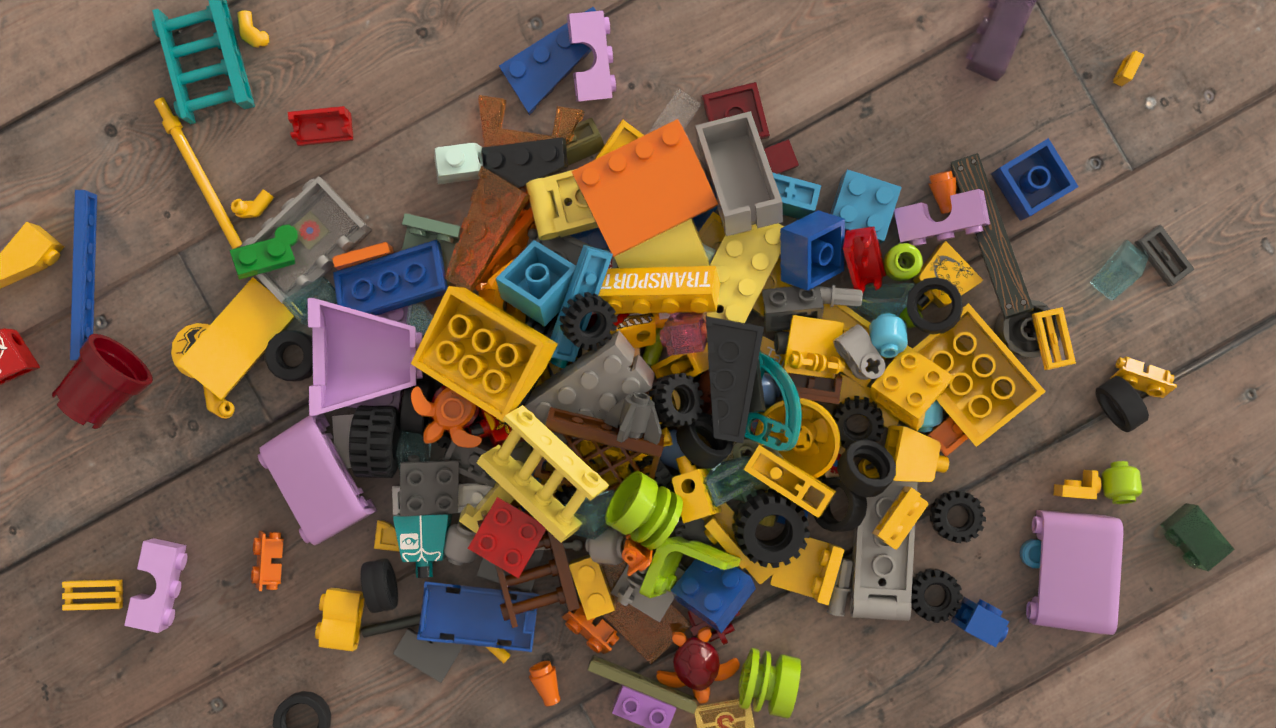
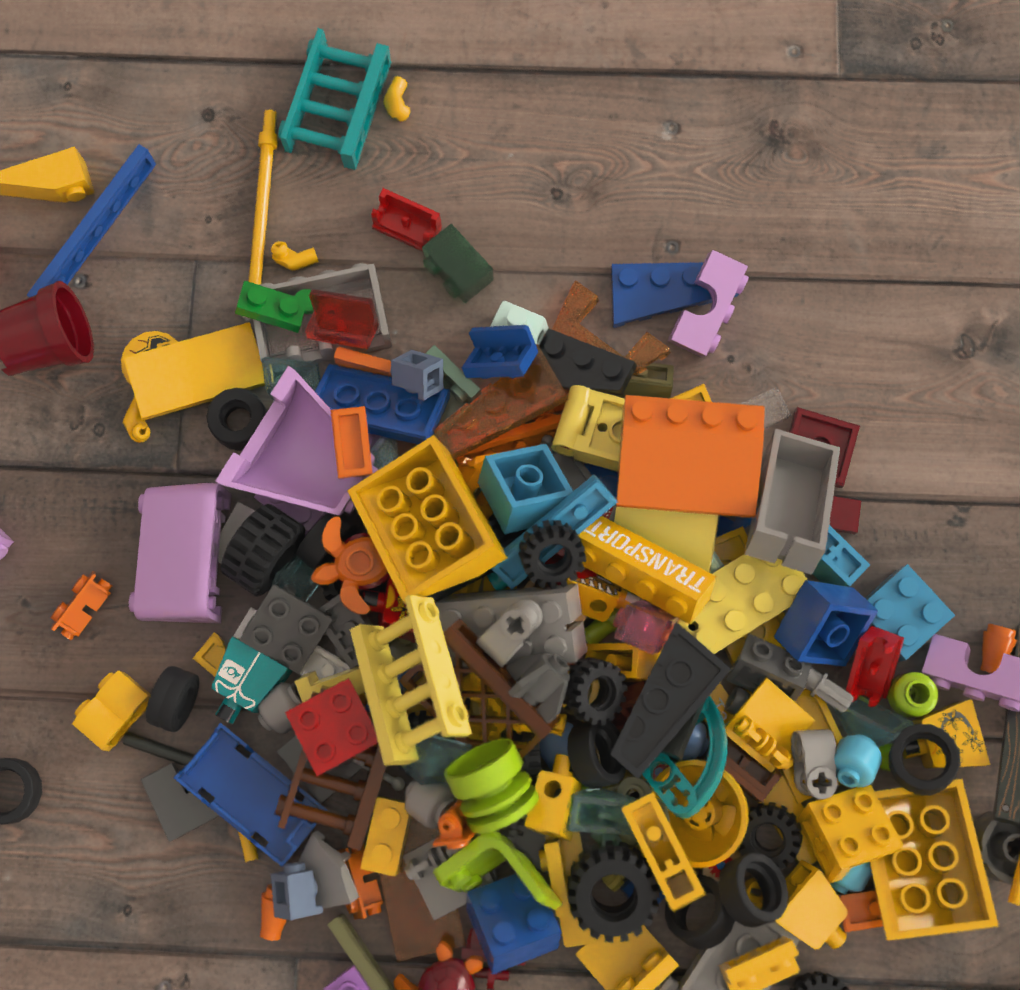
camera: 30 degrees right, 10 degrees down
(323, 235) = (342, 319): none -> clear red panel
(381, 136) = (457, 264): none -> clear green brick
(391, 326) = (351, 442): none -> orange tile
(406, 242) = (418, 373): none -> sand blue brick
(458, 190) = (500, 352): none -> blue bracket
(551, 663) = (294, 892): none -> sand blue brick
(563, 640) = (330, 872): none -> light grey slope
(592, 396) = (508, 633): none -> light grey piece

